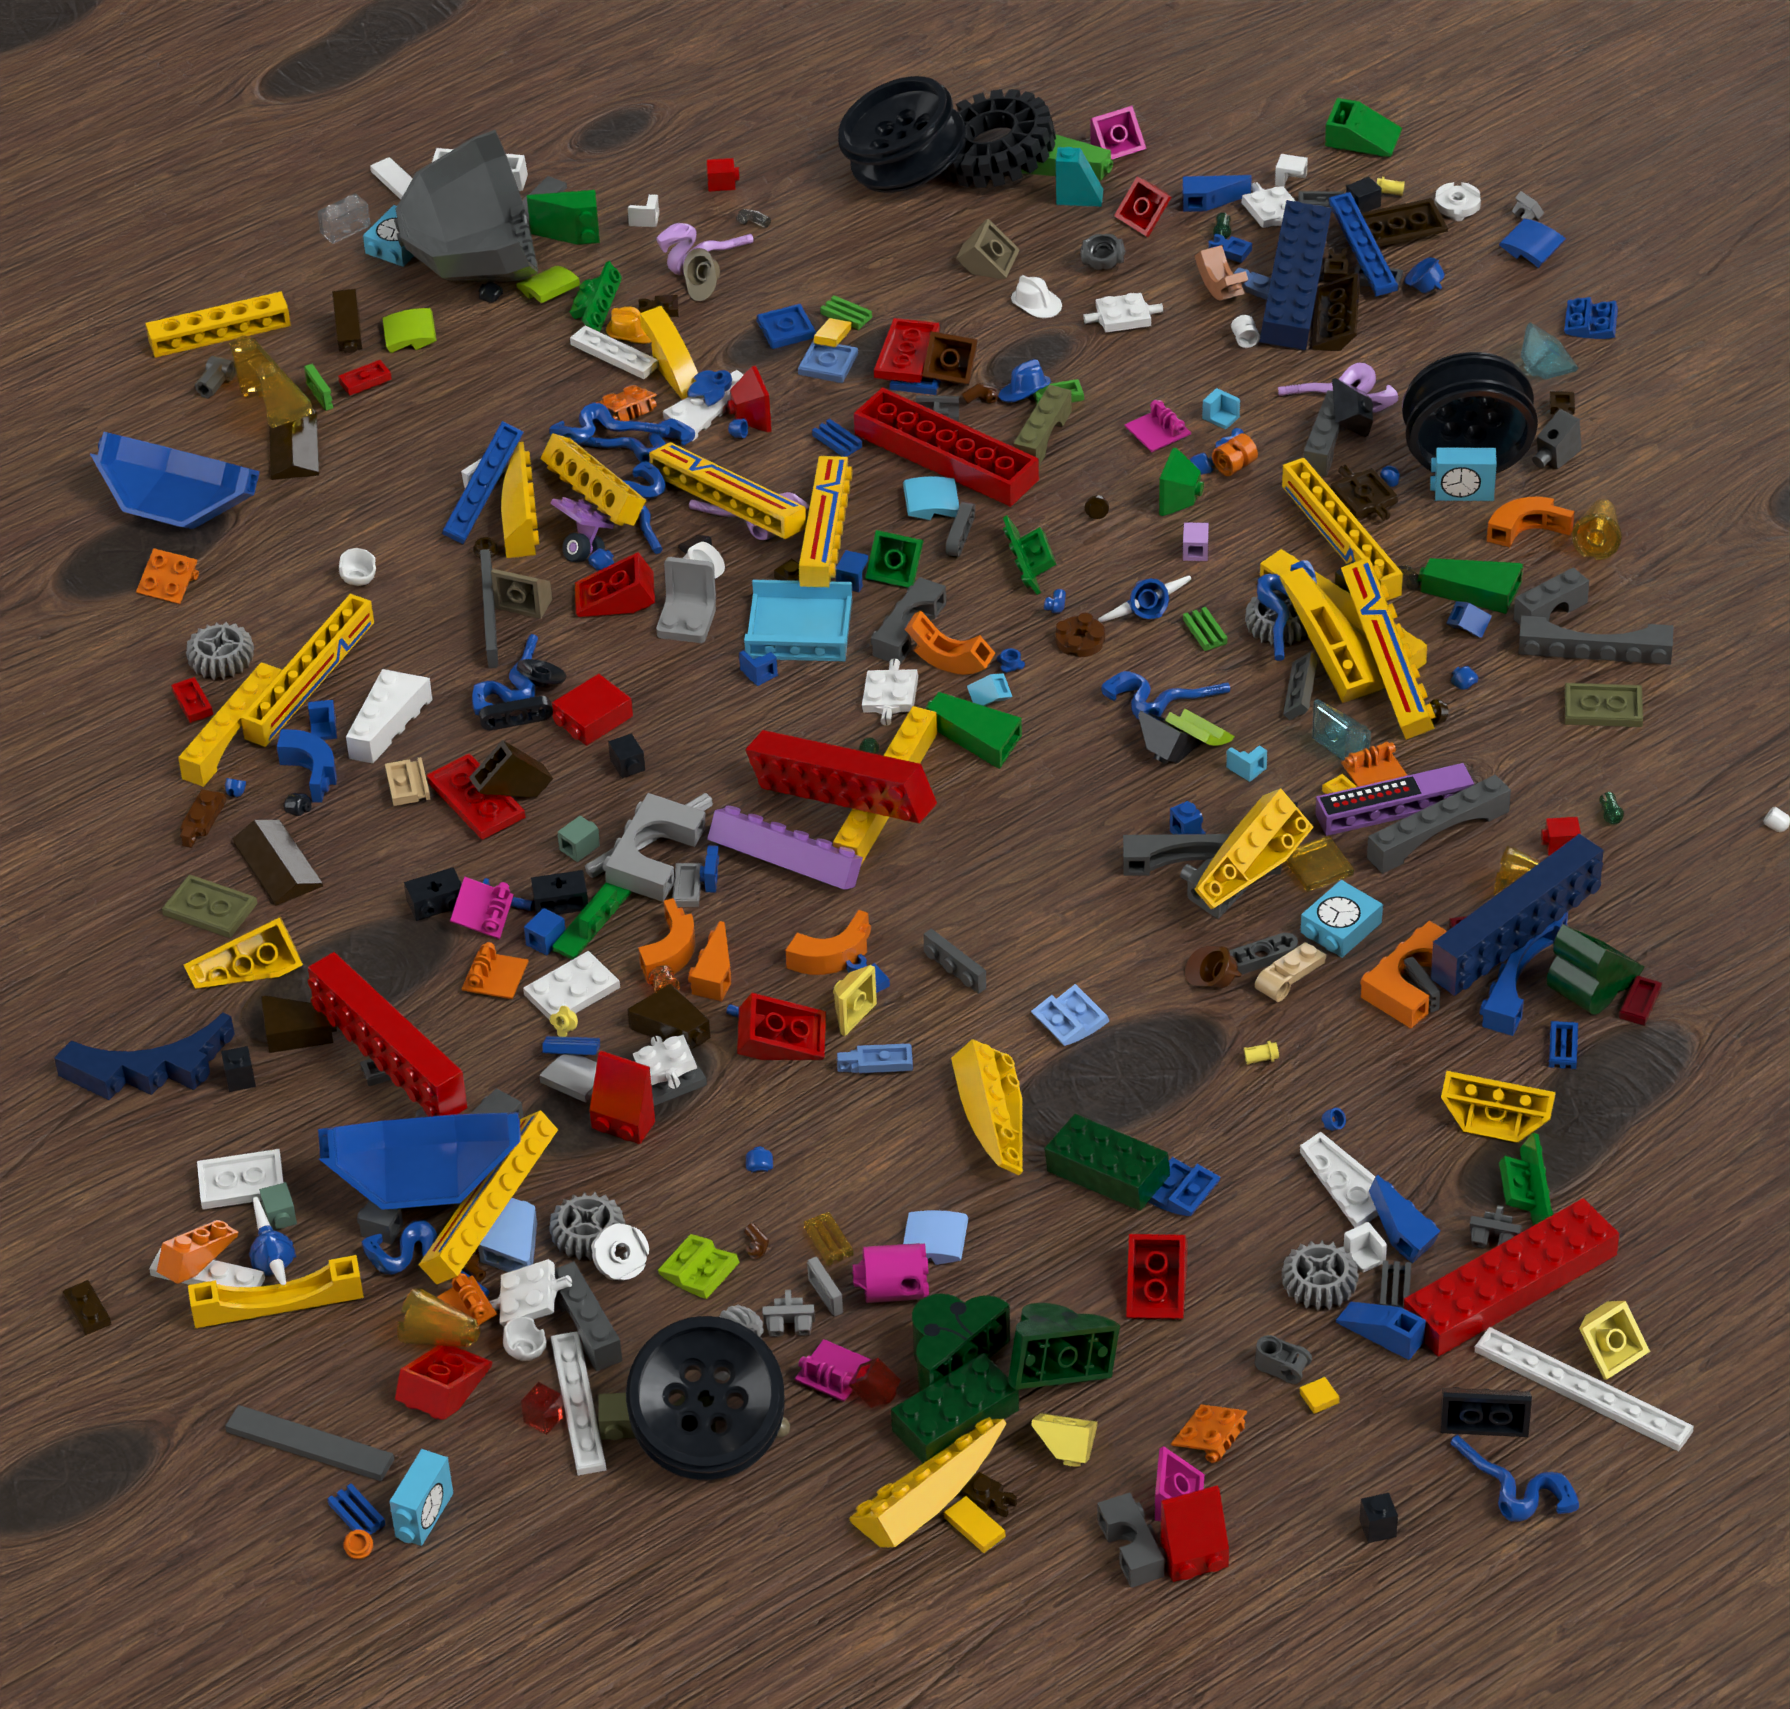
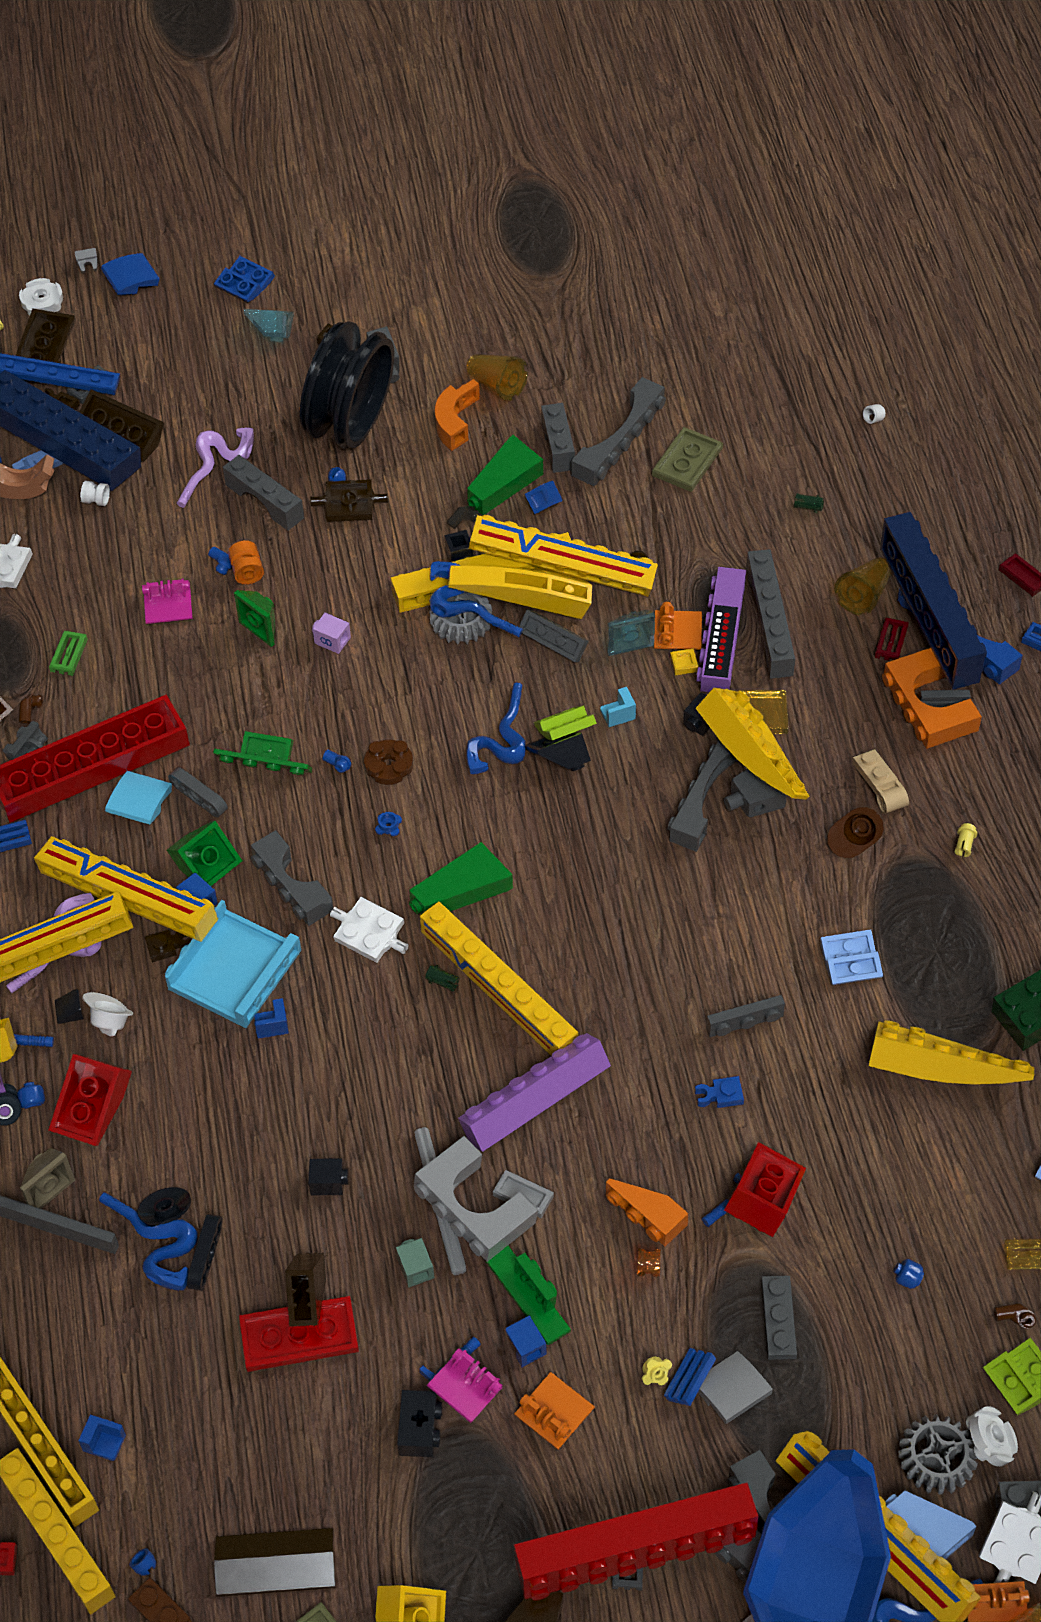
camera: 65 degrees left, 10 degrees up
(297, 804) = (201, 1510): black piece -> none
(311, 752) = (151, 1463): blue arch -> none
(385, 713) = (129, 1369): white wedge -> none
(407, 781) = (239, 1389): tan plate -> none
(560, 892) = (482, 1322): black brick -> none
(572, 985) = (607, 1348): white plate -> none
(592, 709) = (244, 1182): red brick -> none
(622, 1098) = (808, 1357): red slope -> none
(666, 1059) = (761, 1301): white plate -> none
(669, 1015) = (701, 1274): dark brown slope -> none
(676, 947) = (604, 1228): orange arch -> none
(688, 600) = (154, 1045): light grey piece -> none
(709, 872) = (521, 1163): blue plate -> none
(829, 955) = (681, 1122): orange arch -> none
(841, 776) = (499, 1004): red brick -> none
(855, 997) = (757, 1113): light yellow slope -> none
(876, 1059) = (834, 1125): medium blue hinge -> none
(946, 653) = (357, 862): orange arch -> none
(989, 689) = (420, 854): medium azure panel -> none
(1024, 381) = (42, 671): blue piece -> none
(1051, 410) = (99, 664): olive arch -> none
(1096, 507) = (238, 683): dark brown plate -> none
(1147, 599) = (385, 695): blue helmet -> none
(1186, 819) = (672, 772): blue brick -> none
(1203, 463) = (227, 591): blue piece -> none
(1216, 630) = (437, 668): bright green tile -> none
(1221, 408) = (178, 549): medium azure panel -> none
(1275, 946) = (852, 784): dark grey beam -> none
(1337, 522) = (381, 529): yellow brick -> none
(1341, 918) = (841, 721): medium azure brick -> none
(1352, 408) = (261, 456): black slope -> none
(1426, 275) = (118, 351): blue piece -> none
(1464, 474) = (383, 425): medium azure brick -> none
(1464, 677) = (602, 530): blue piece -> none
(1559, 832) = (825, 543): red brick -> none
(1589, 970) = (997, 585): dark green brick -> none

